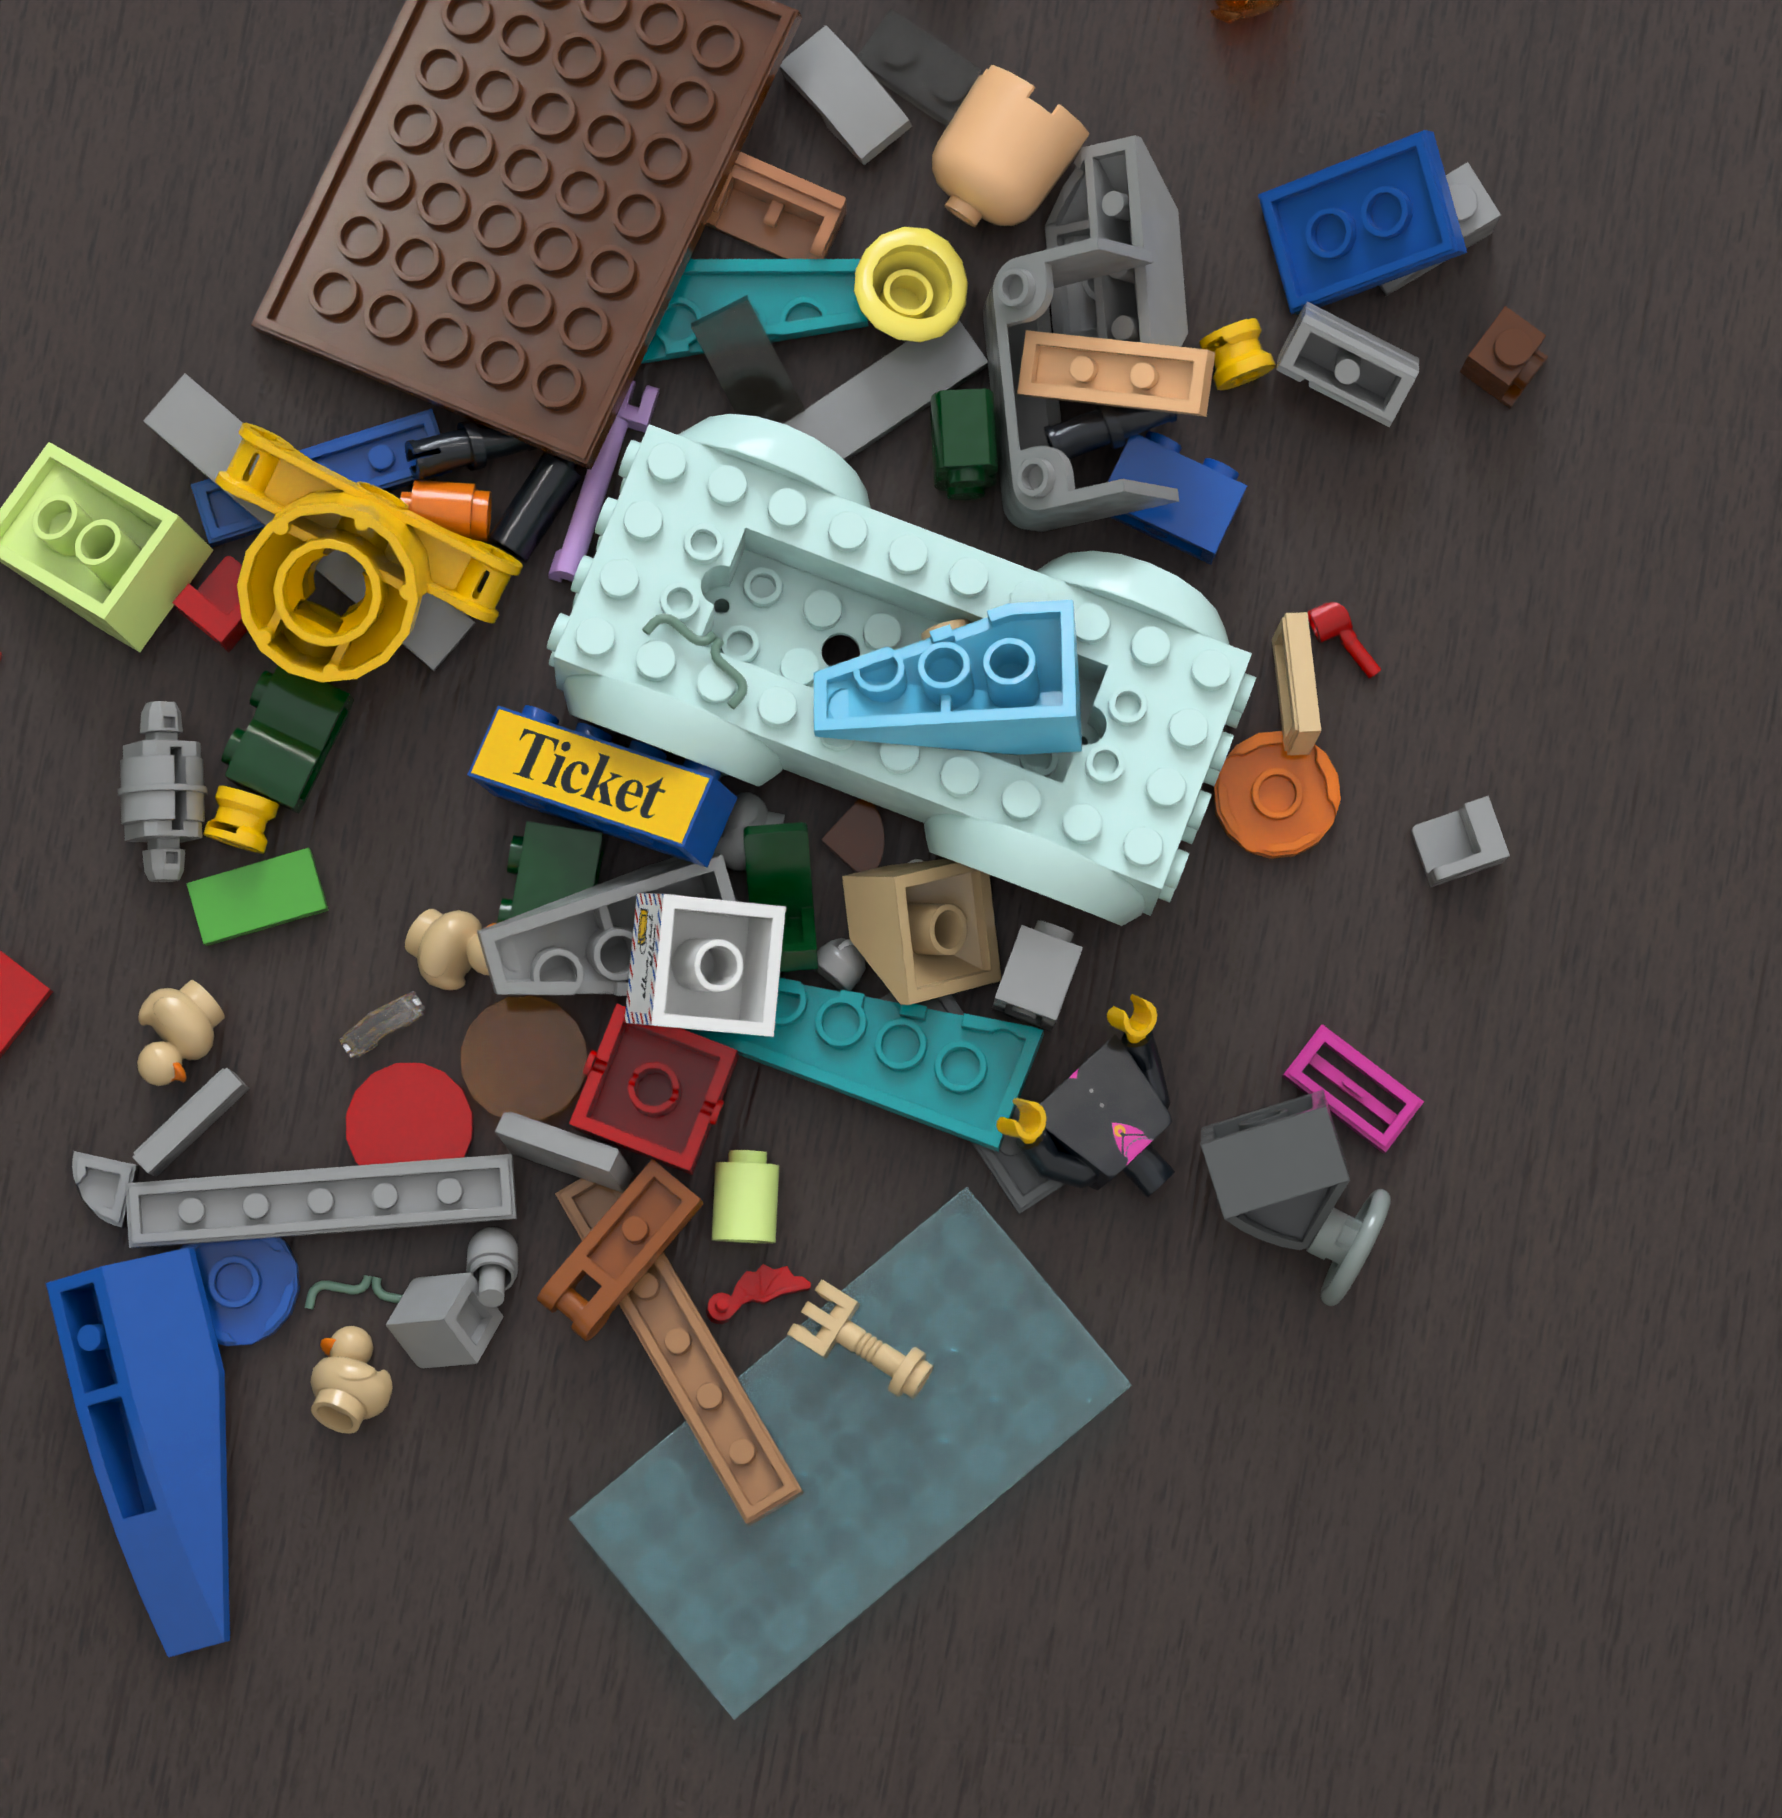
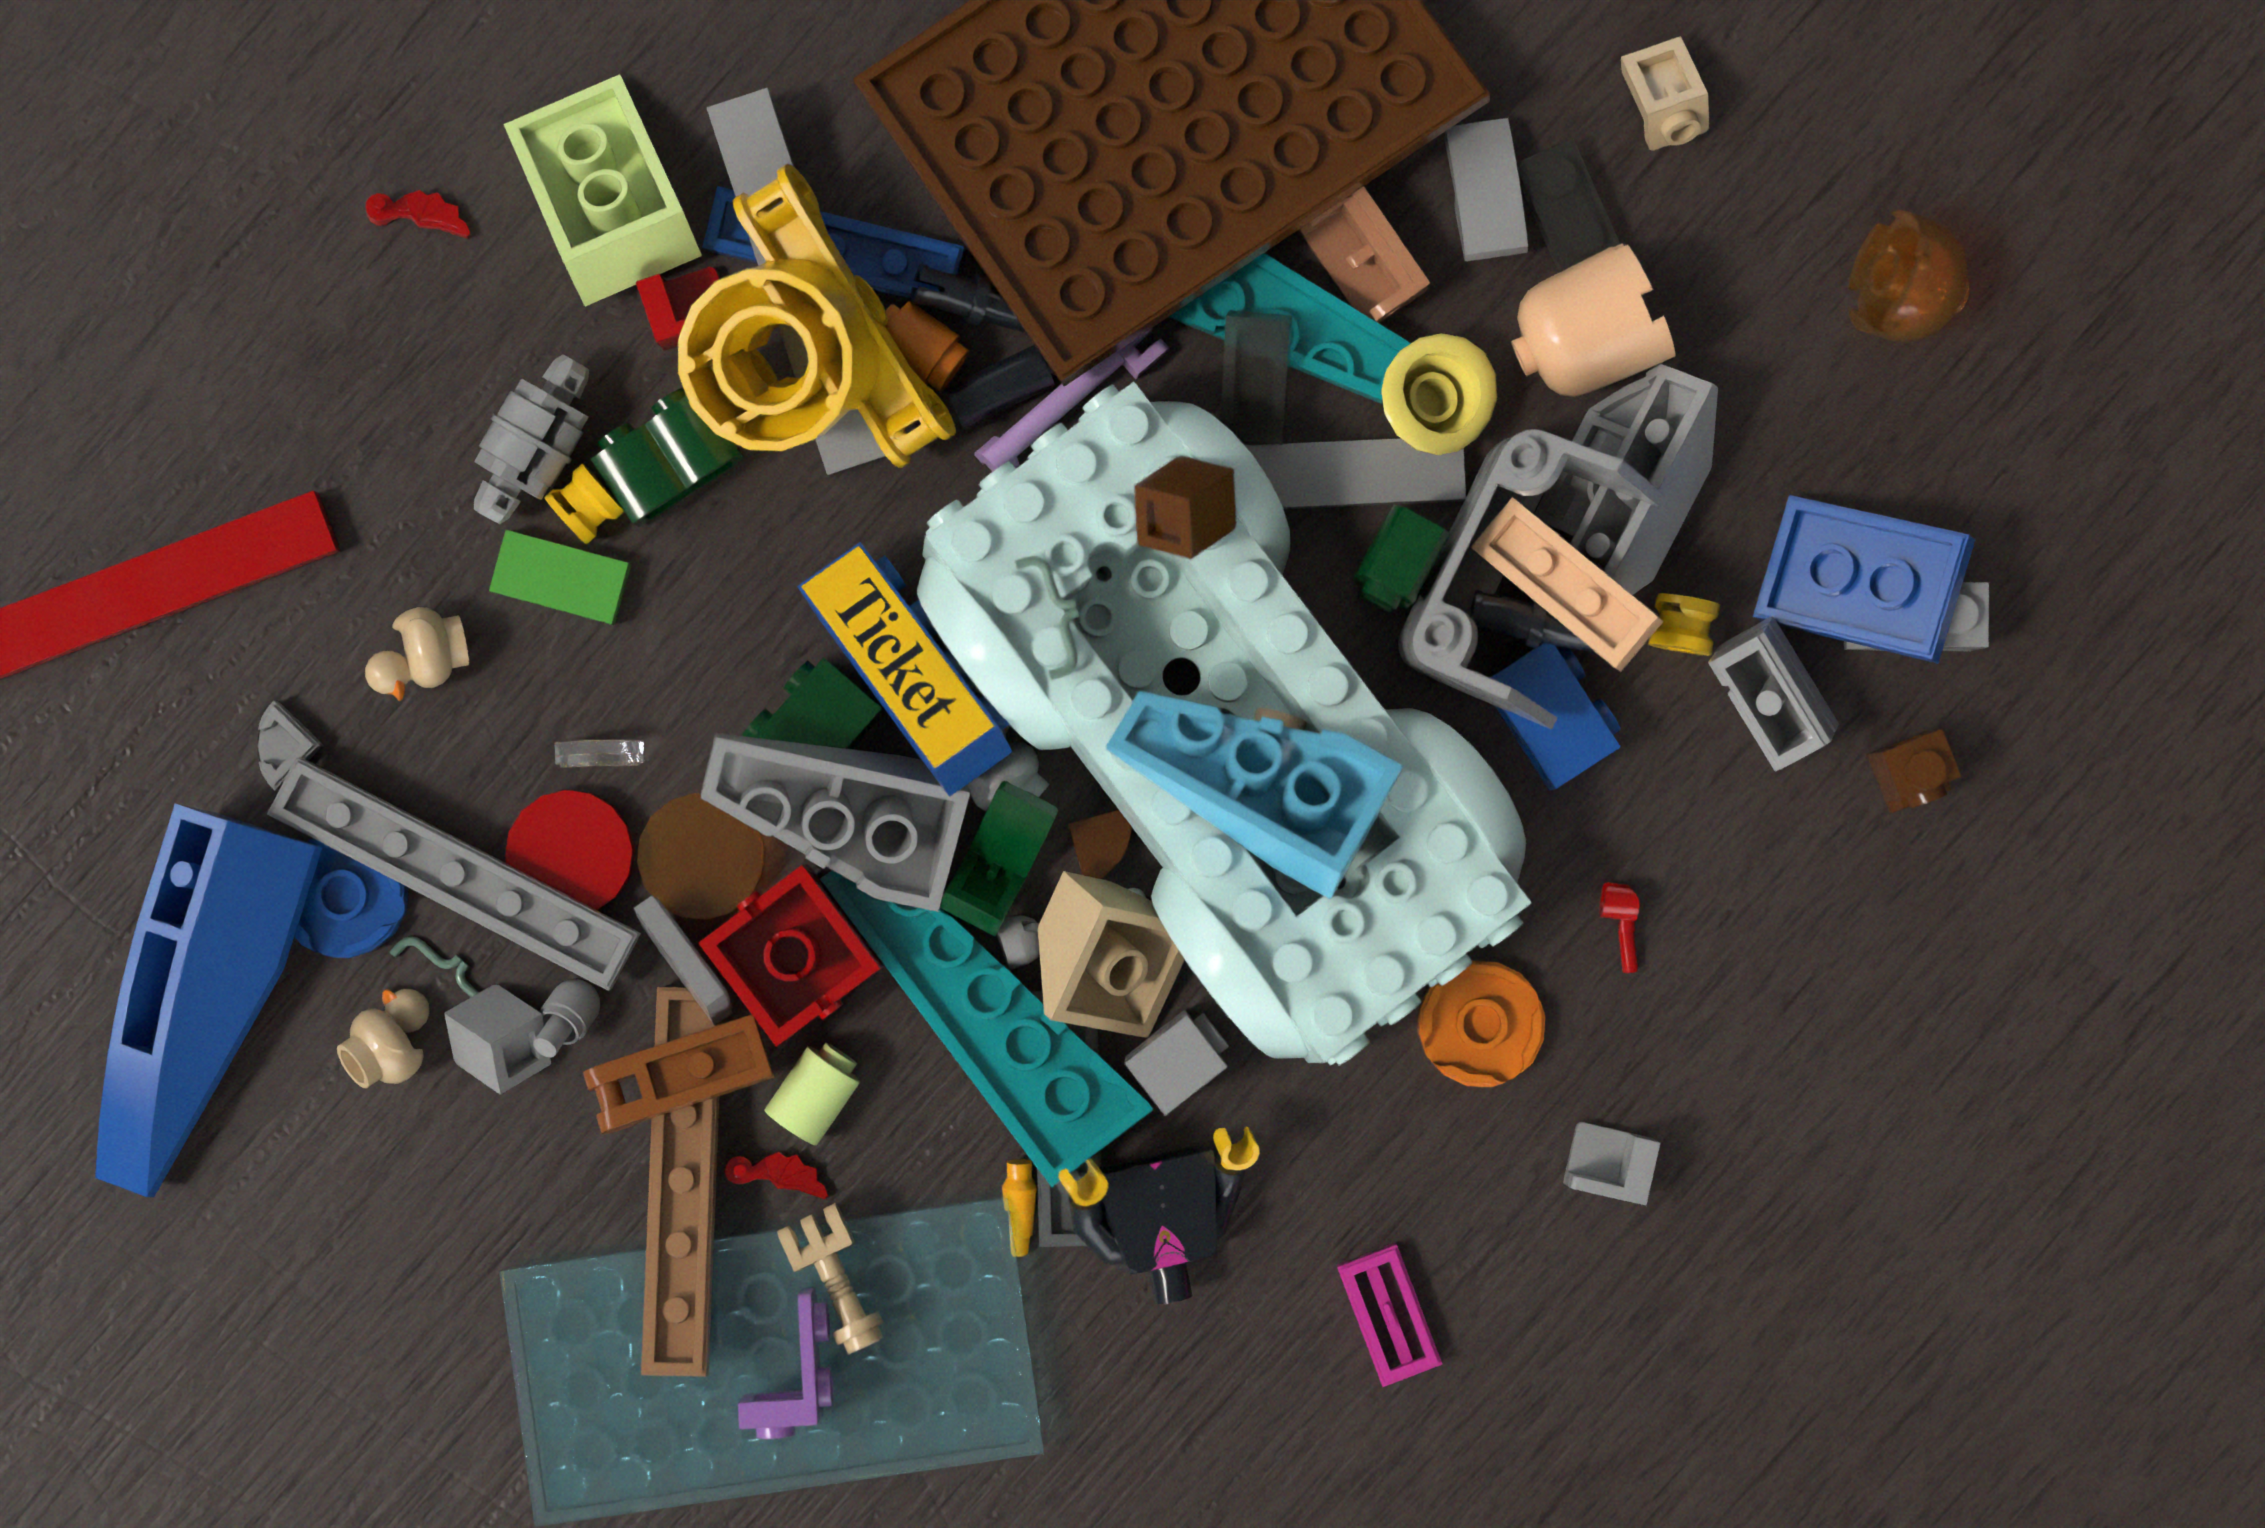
camera: 30 degrees right, 5 degrees up
(190, 1121) = (384, 736): light grey tile -> none
(446, 947) = (691, 720): tan animal -> none
(705, 964) = (893, 882): white brick -> none
(757, 497) = (1185, 507): none -> reddish brown panel
(883, 1486) = (778, 1413): none -> medium lavender bracket
(977, 1178) = (1021, 1194): none -> light orange piece
(1280, 1183) = (1278, 1366): dark grey piece -> none
(1296, 684) = (1556, 943): tan tile -> none

